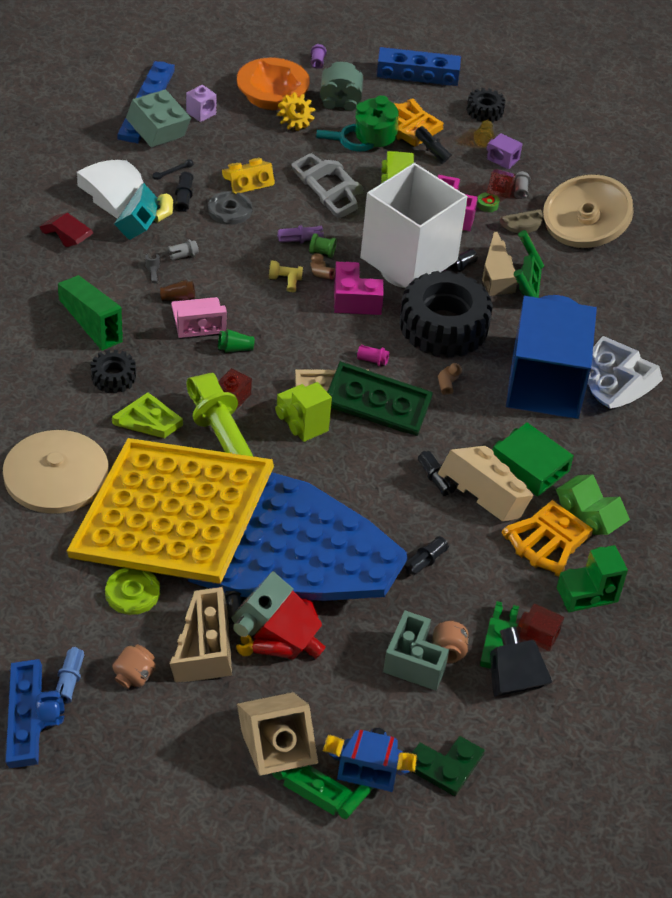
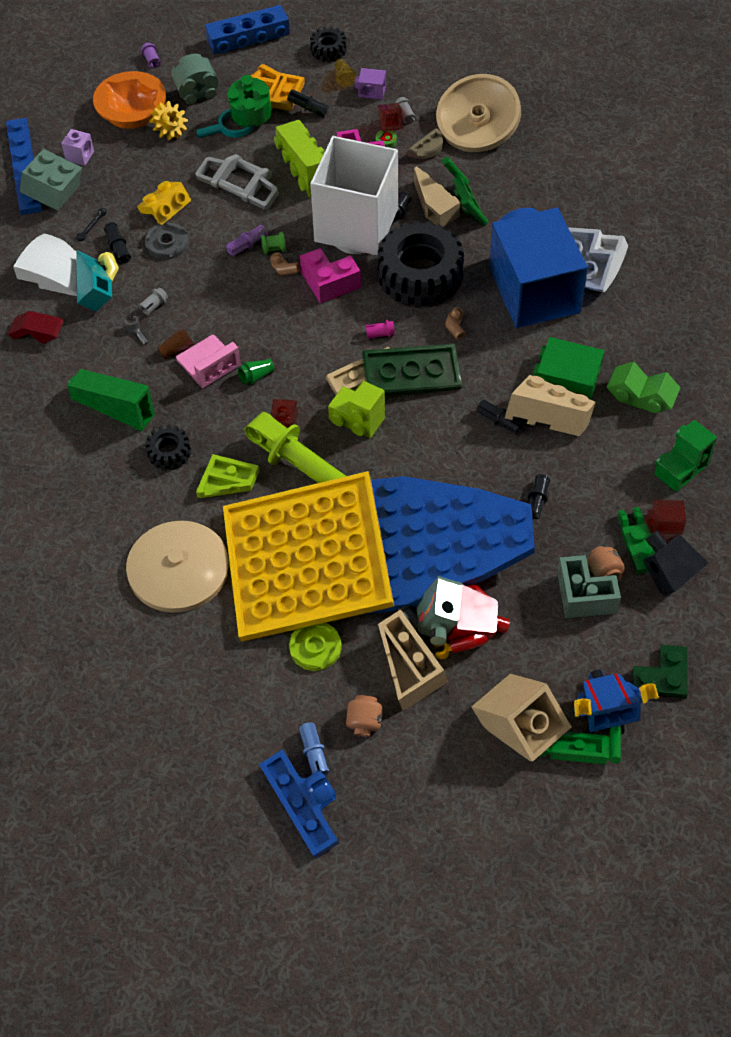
camera: 20 degrees left, 10 degrees up
(293, 274) = (264, 282): light yellow piece -> none
(557, 525) = (629, 420): light orange plate -> none

